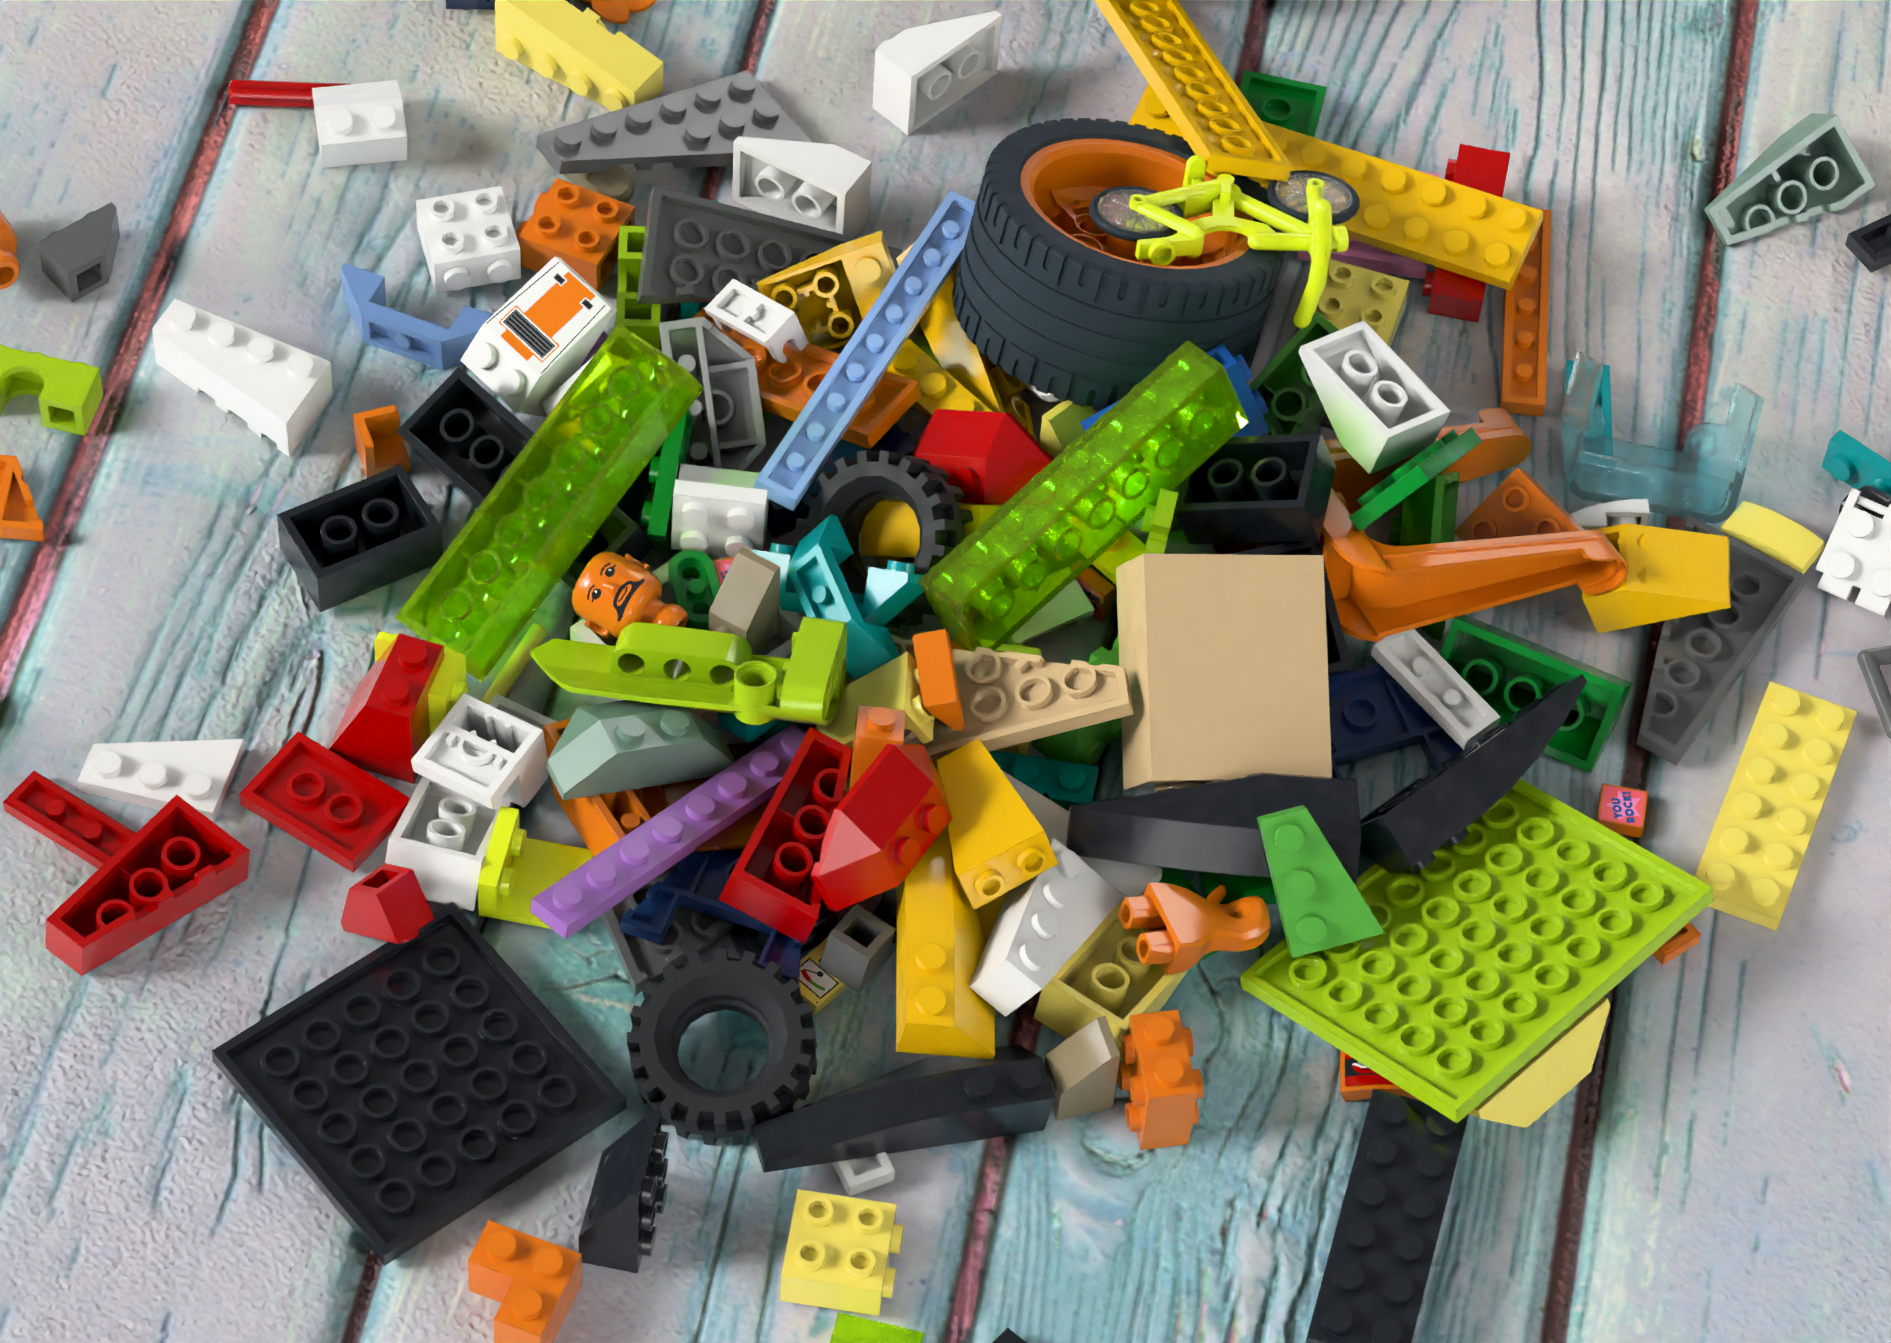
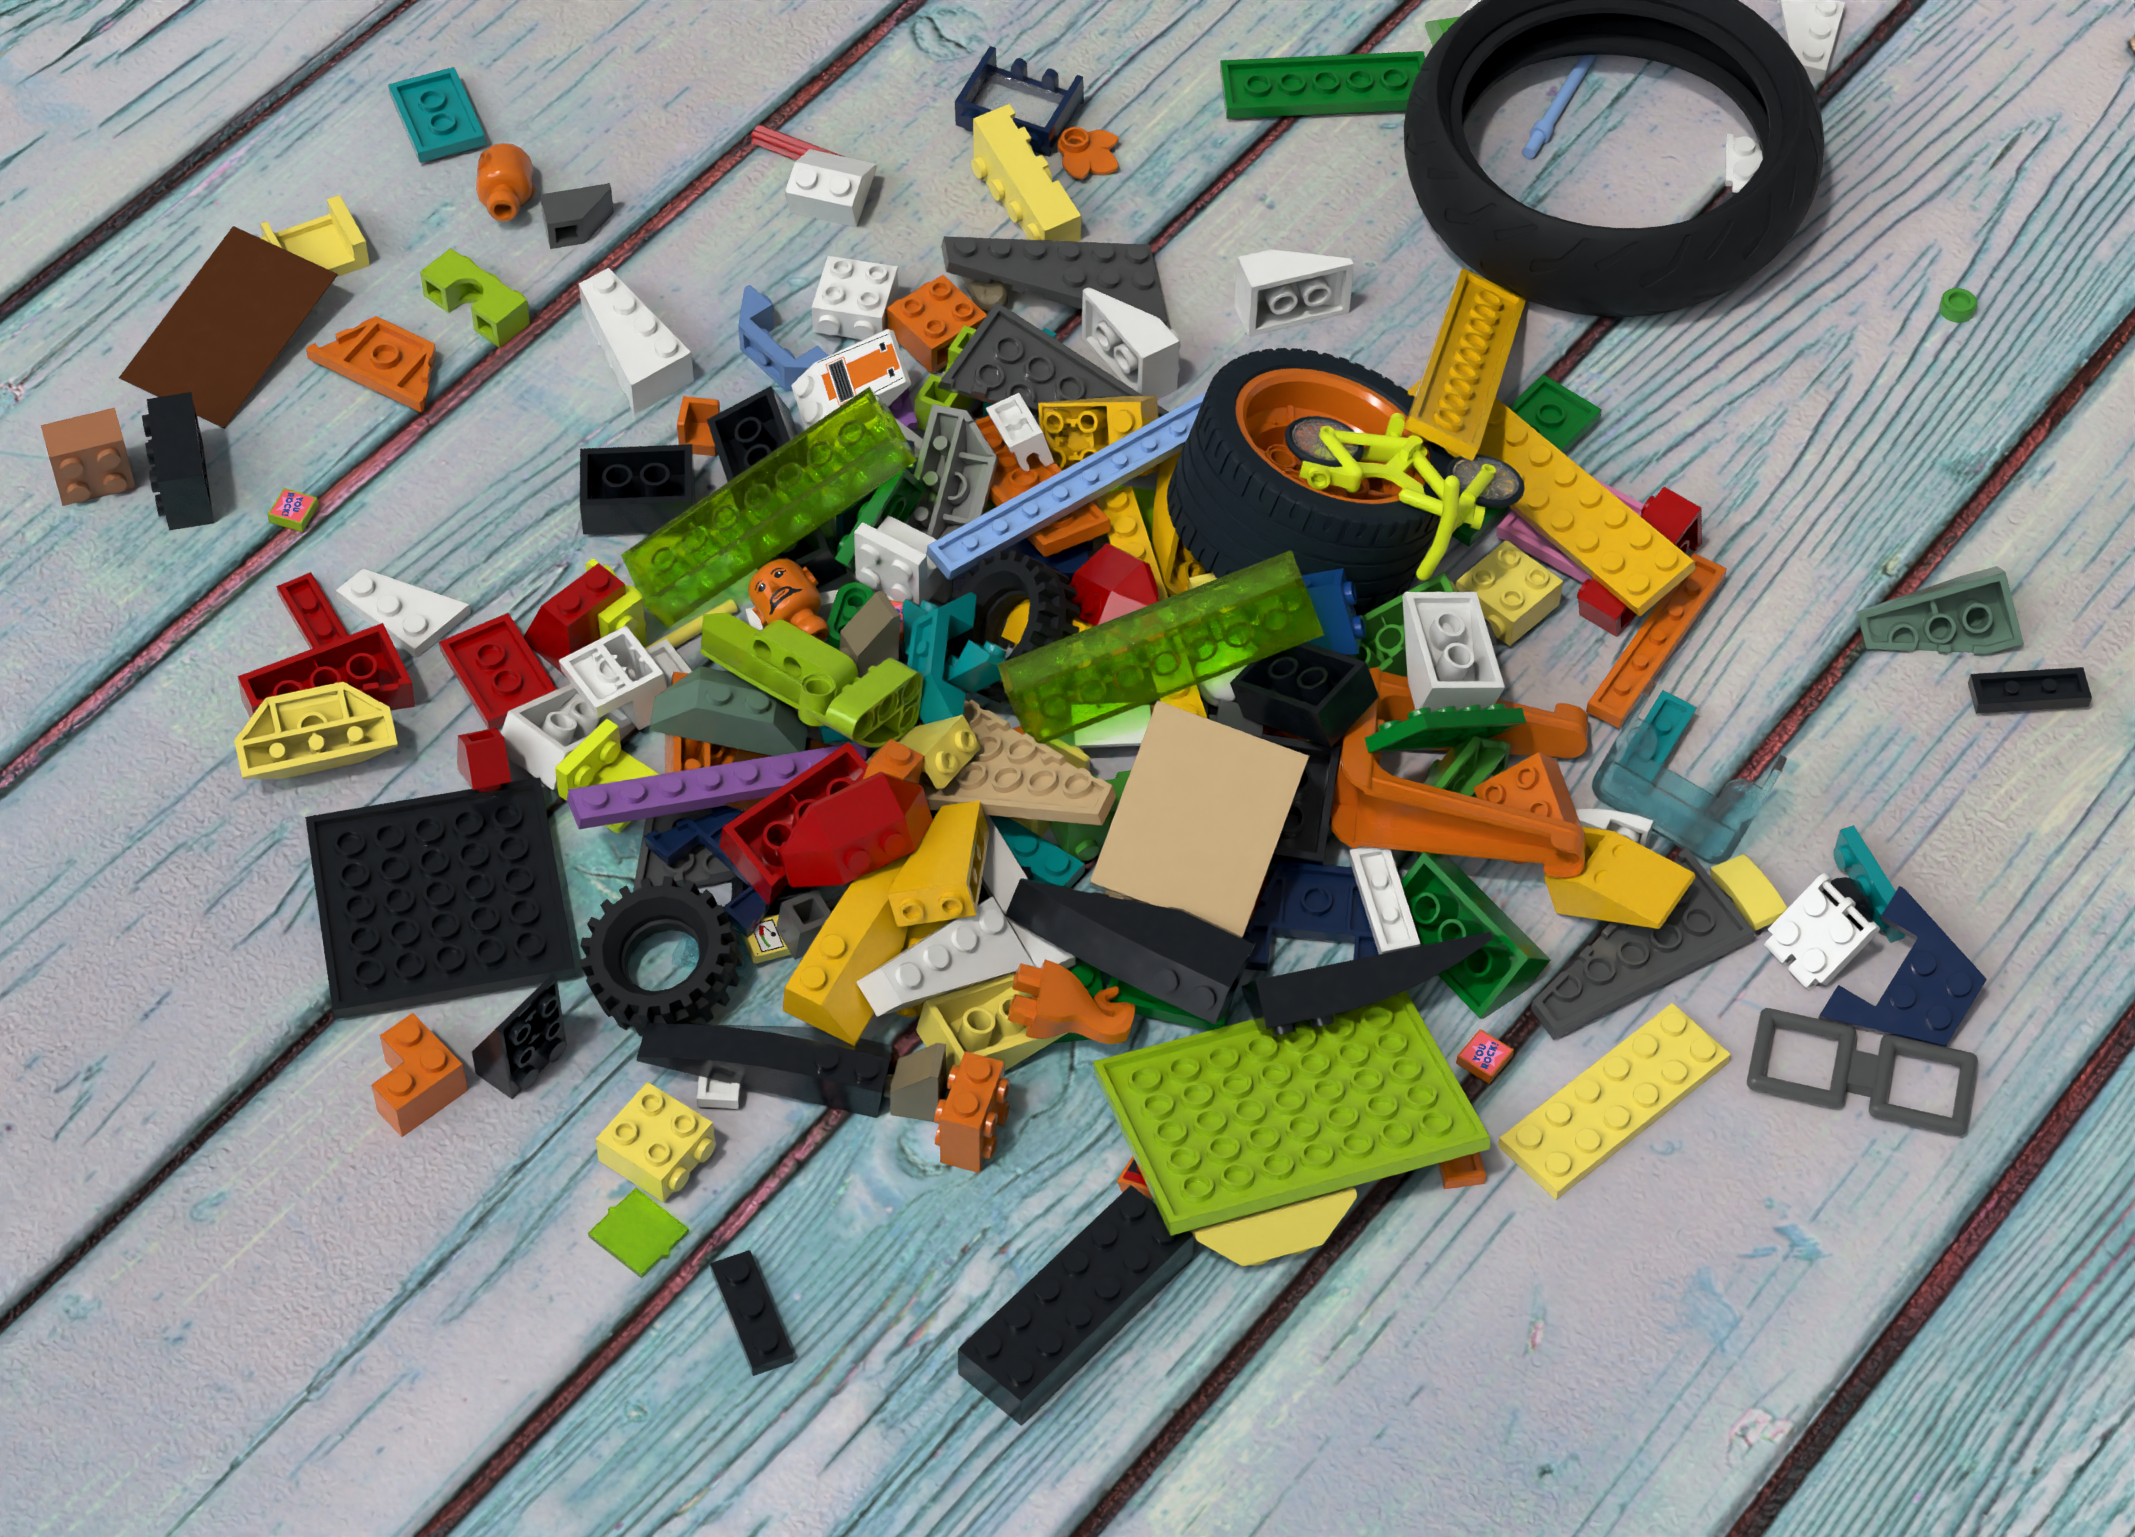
camera: 30 degrees right, 0 degrees up
(172, 947) = (313, 732): none -> light yellow wedge
(938, 677) = (975, 744): orange slope -> none
(1158, 521) = (1212, 690): lime plate -> none
(1311, 886) = (1171, 1011): bright green wing -> none

